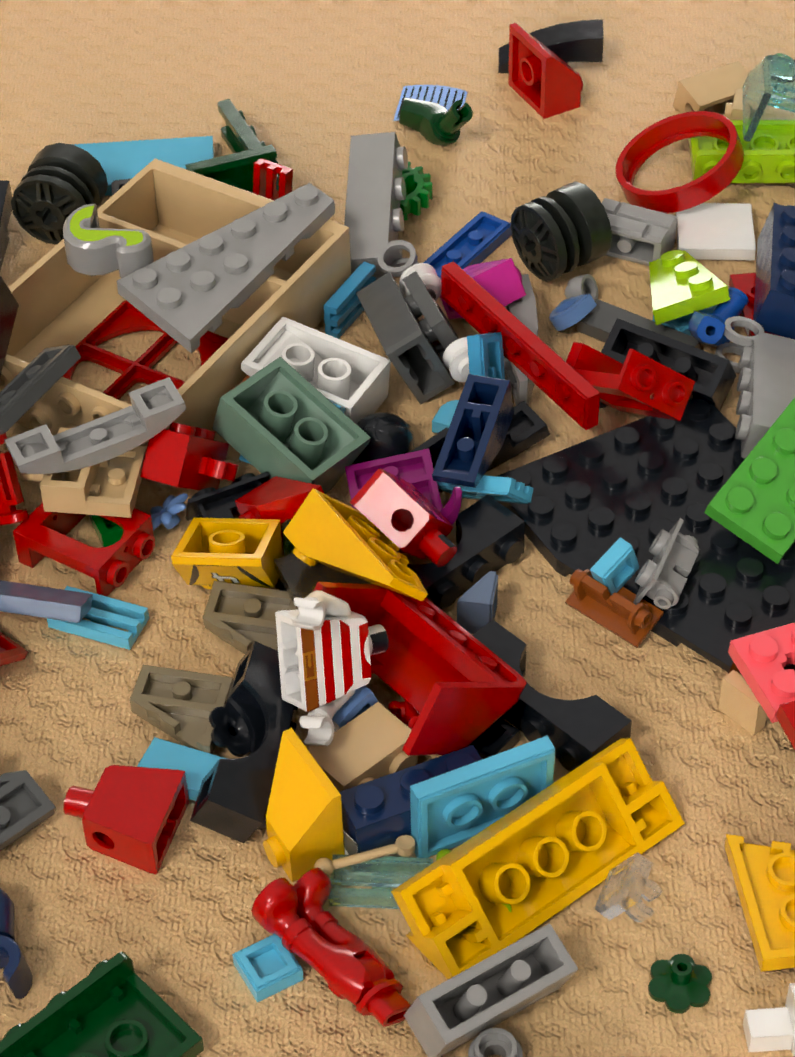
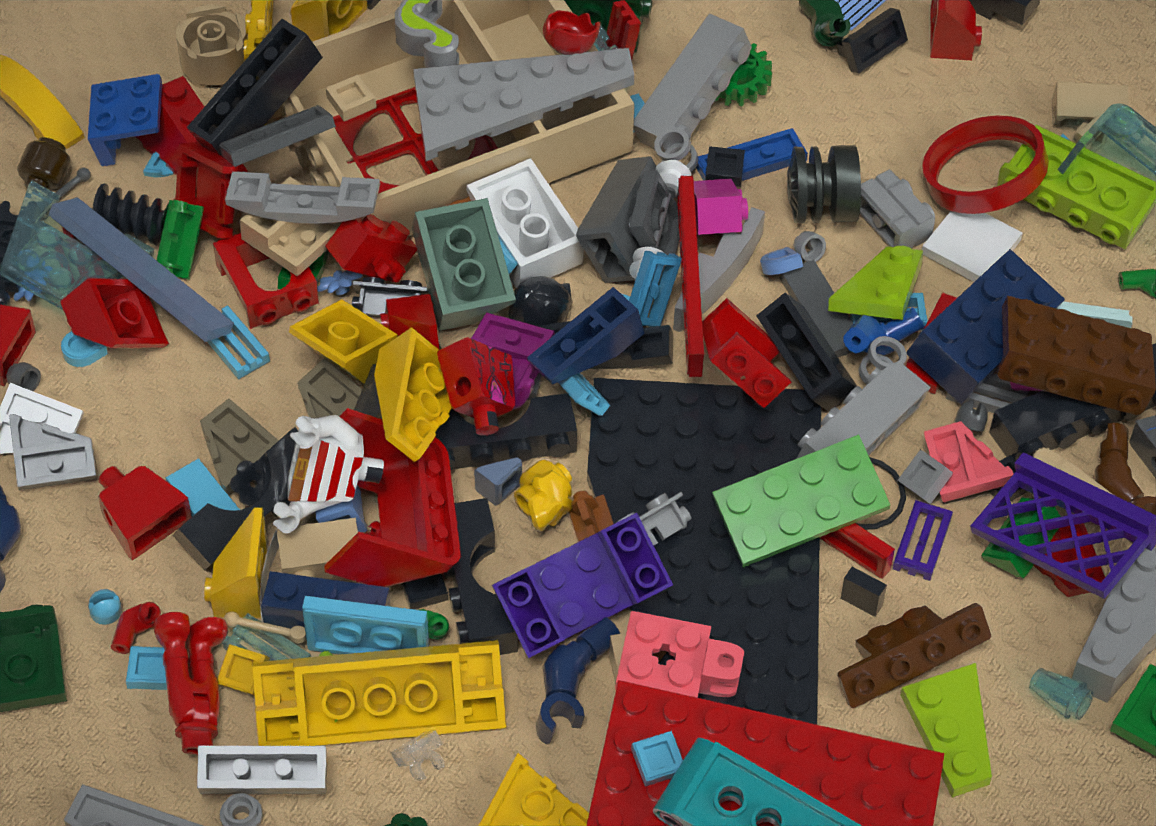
camera: 30 degrees right, 10 degrees up
(74, 327) = (351, 97): none -> tan plate
(172, 937) = (104, 606): none -> medium azure hinge
(215, 929) = (133, 623): none -> red arm
(246, 192) = (570, 33): none -> red hair
(344, 304) = (599, 166): dark azure tile -> none
(375, 911) = (237, 668): none -> yellow tile
(454, 251) = (725, 164): none -> black tile
(490, 120) = (873, 40): none -> black hinge
(539, 591) = (545, 493): none -> yellow head
(616, 566) = (608, 505): medium azure tile -> none
(661, 640) = (582, 585): none -> dark purple slope
(703, 748) = (562, 676): none -> dark blue piece

